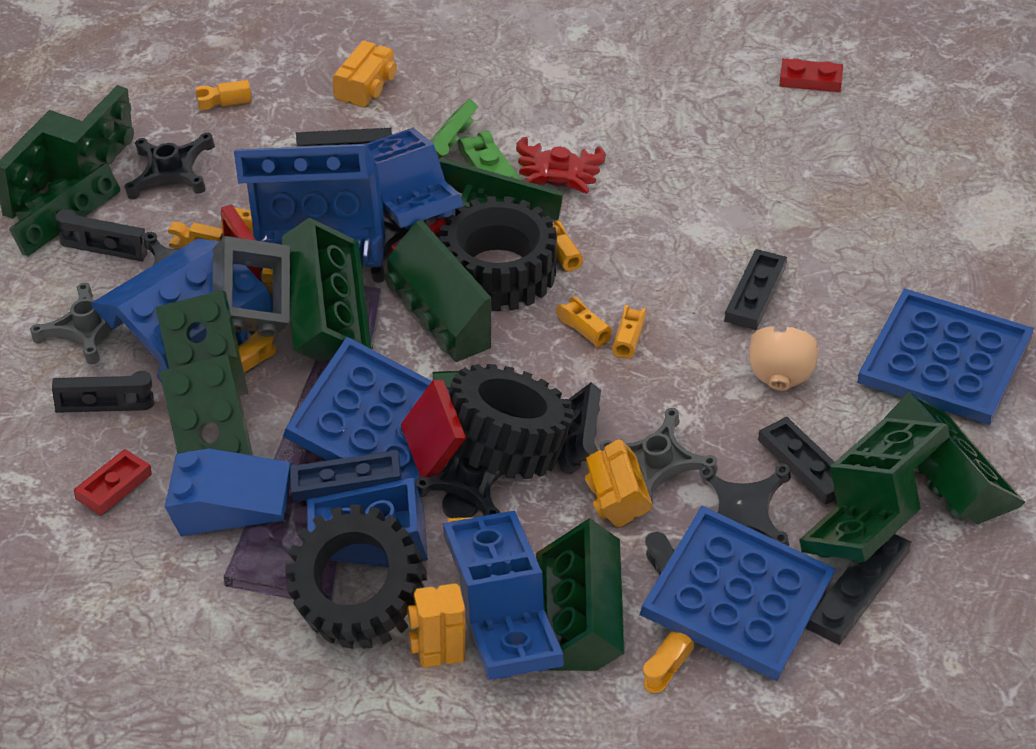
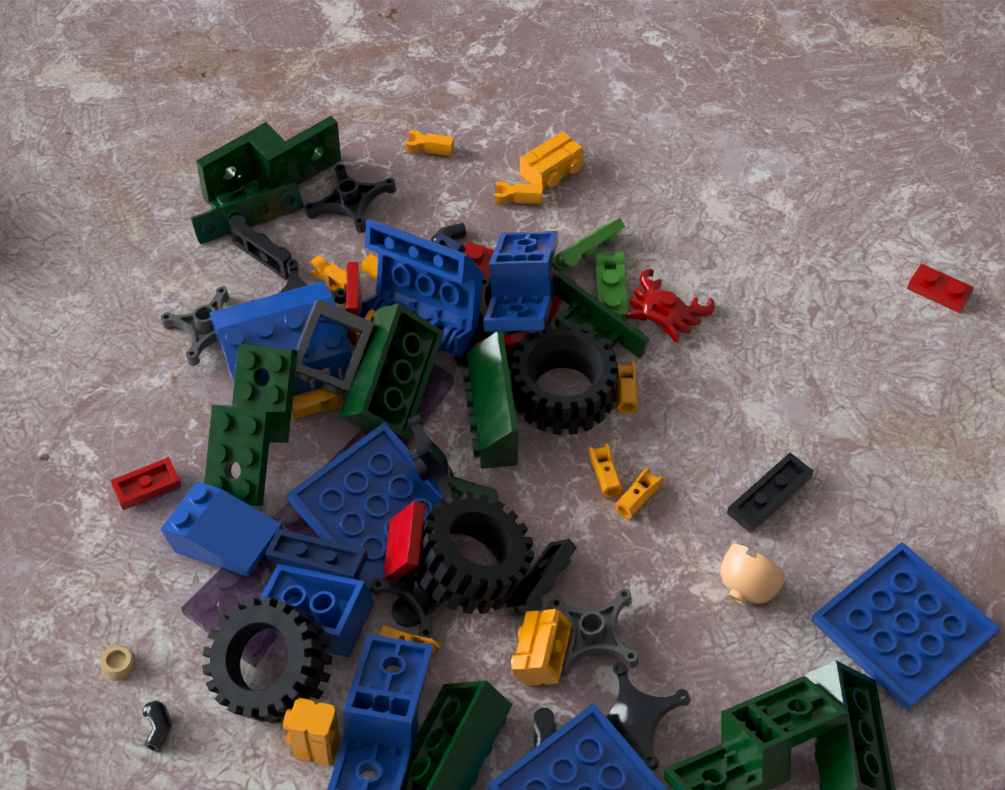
camera: 25 degrees right, 10 degrees up
(103, 393) = (179, 396): black plate -> none
(184, 648) = (117, 662): none -> tan tile
(269, 684) = (160, 722): none -> black arm
(341, 137) = (499, 219): black plate -> none
(346, 112) = (519, 194): none -> light orange bar
(417, 354) = (430, 459): none -> black piece
(802, 456) = (716, 677): black plate -> none

